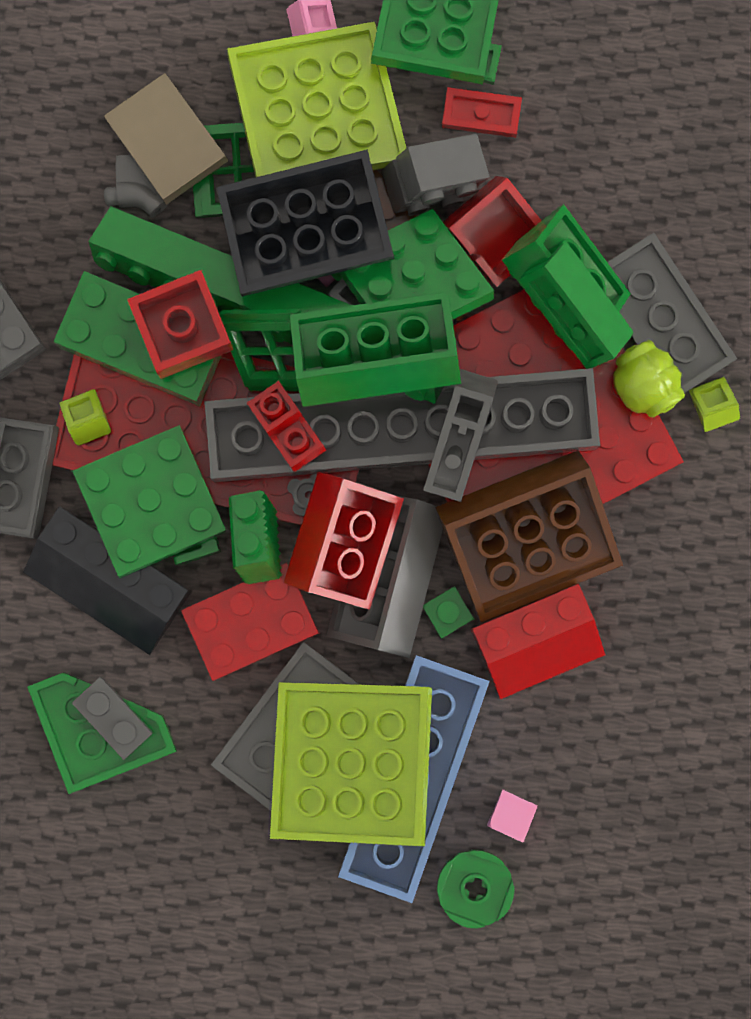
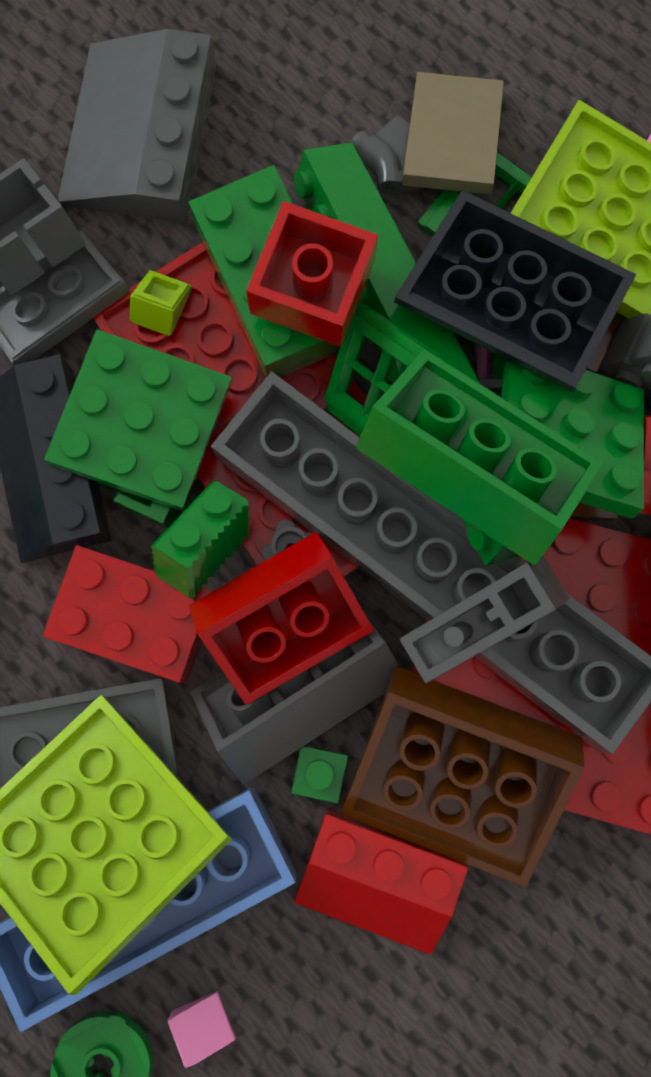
camera: 45 degrees right, 5 degrees down
(286, 426) = (324, 460): red slope -> none

